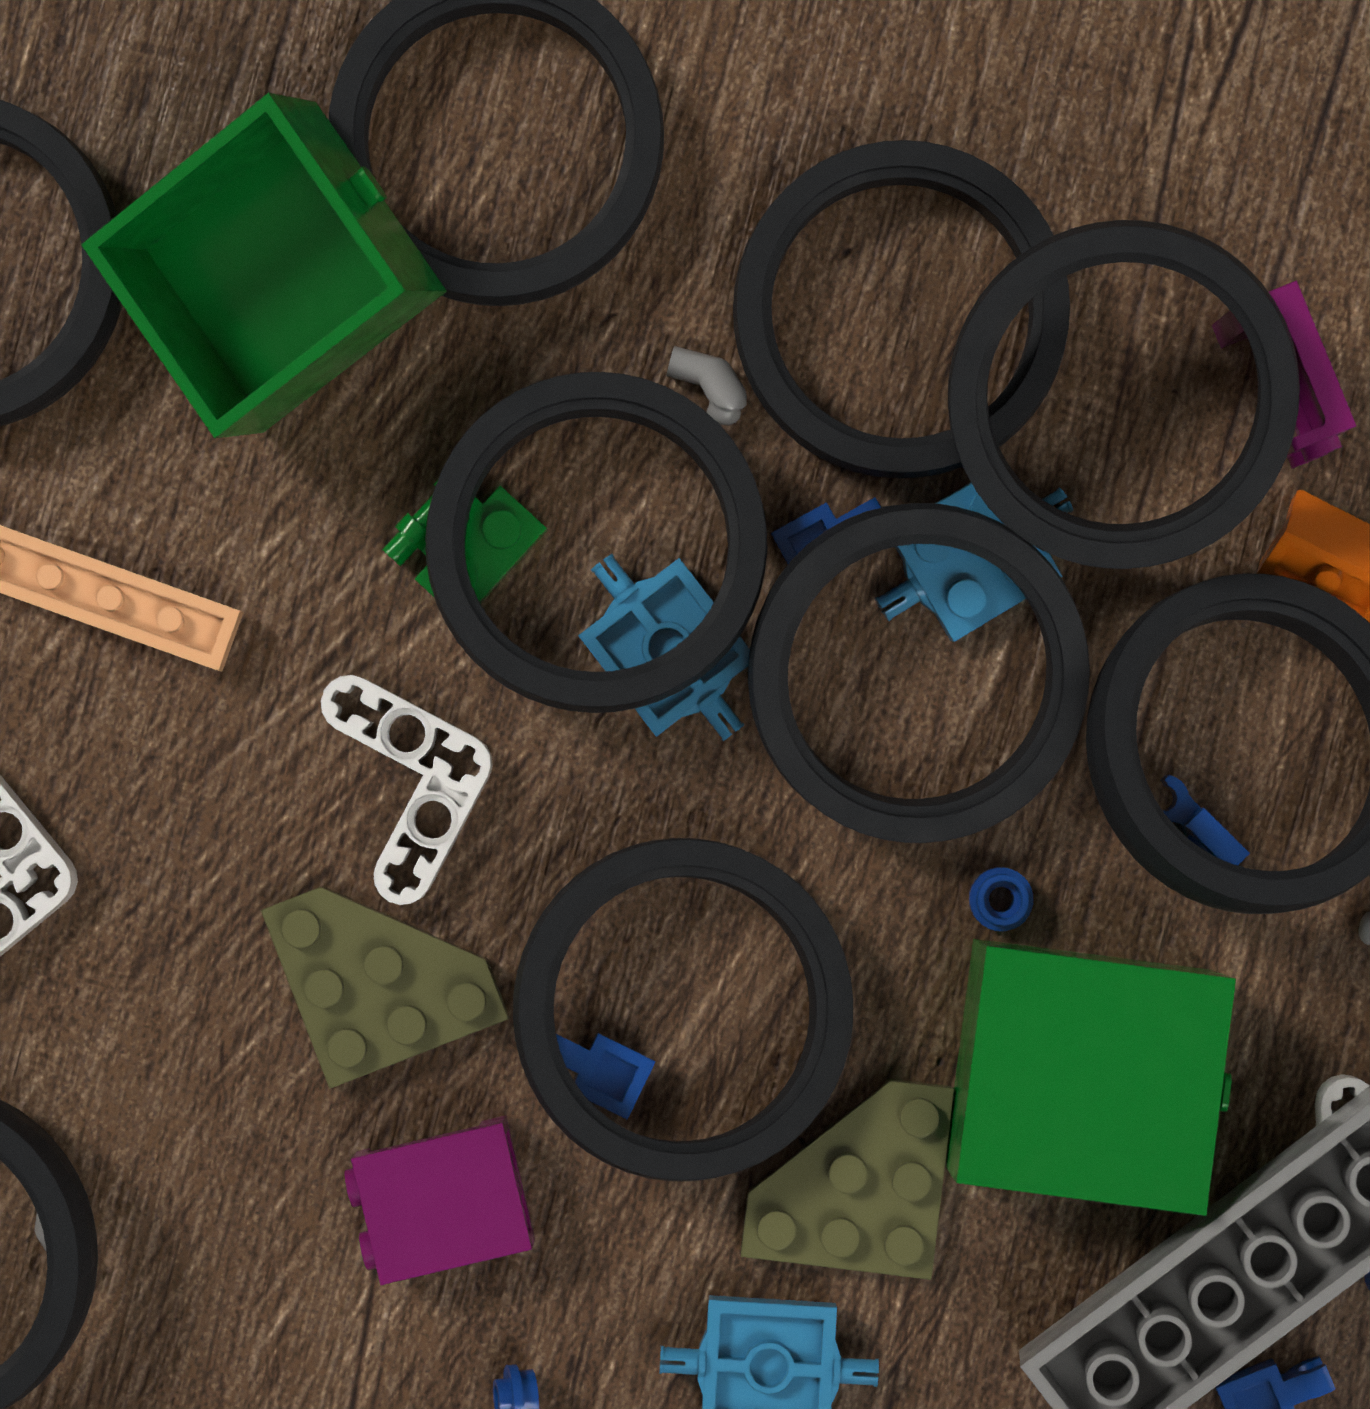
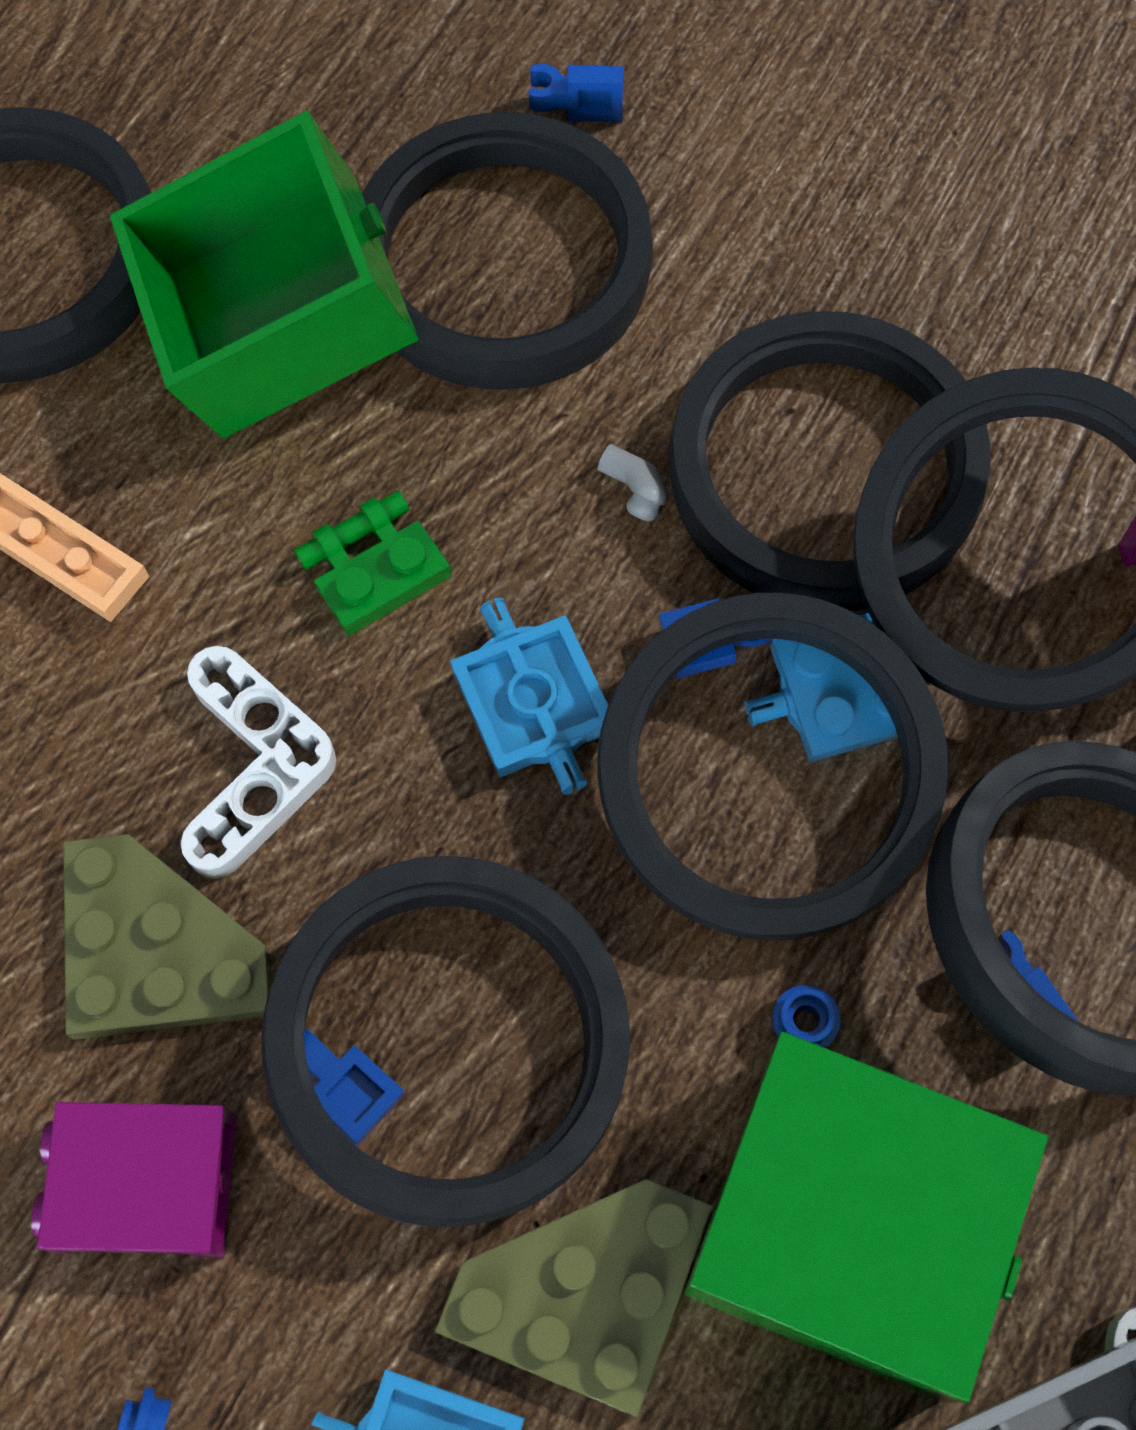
camera: 20 degrees right, 20 degrees down
(609, 397) = (489, 451): black tyre -> none

